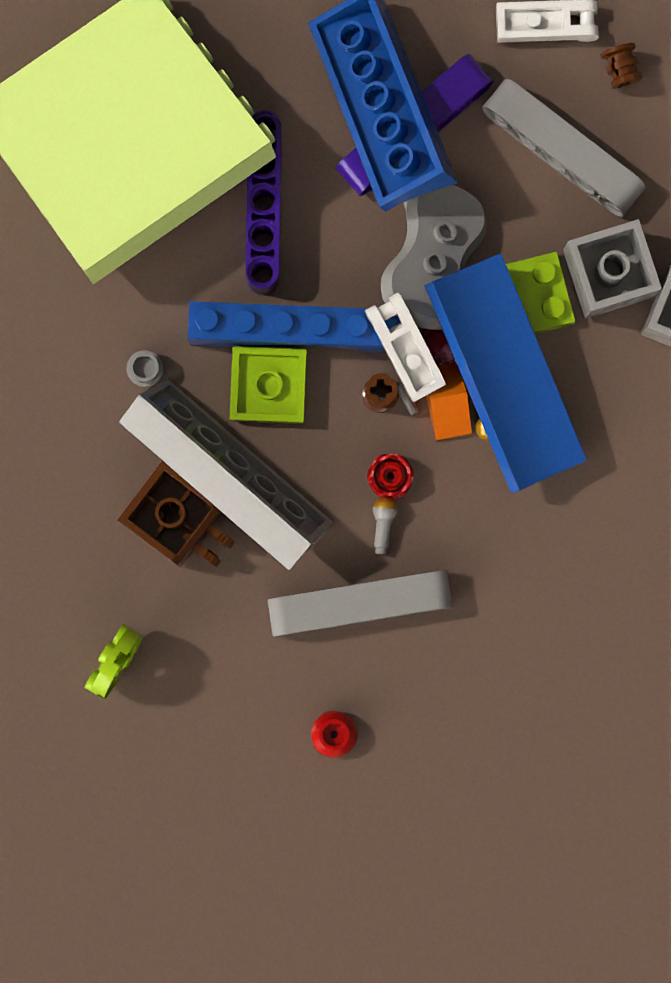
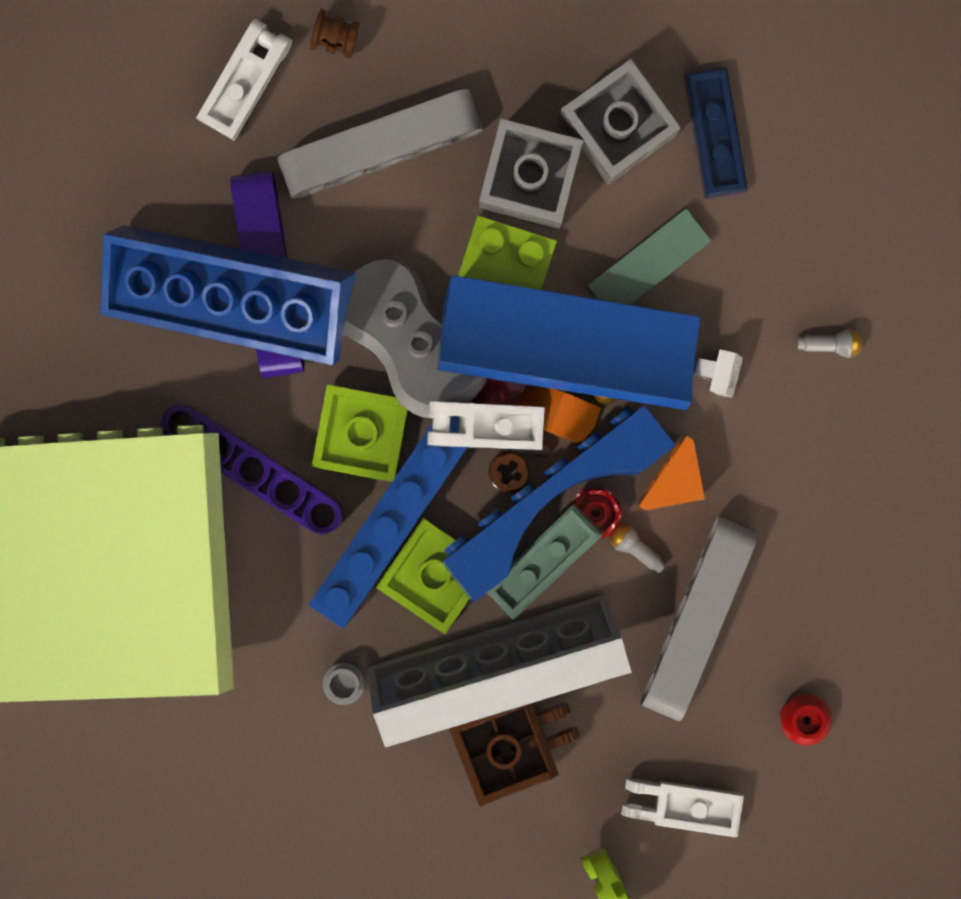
camera: 55 degrees left, 5 degrees up
(211, 685) = (687, 807): none -> white hinge
(330, 459) = (545, 560): none -> sand green tile
(340, 264) = (360, 433): none -> lime plate
(451, 467) = (624, 451): none -> blue arch
(452, 520) = (676, 480): none -> orange slope
(555, 505) = (722, 373): none -> white tile
(605, 402) = (651, 261): none -> sand green tile
(636, 585) = (845, 343): none -> light grey piece

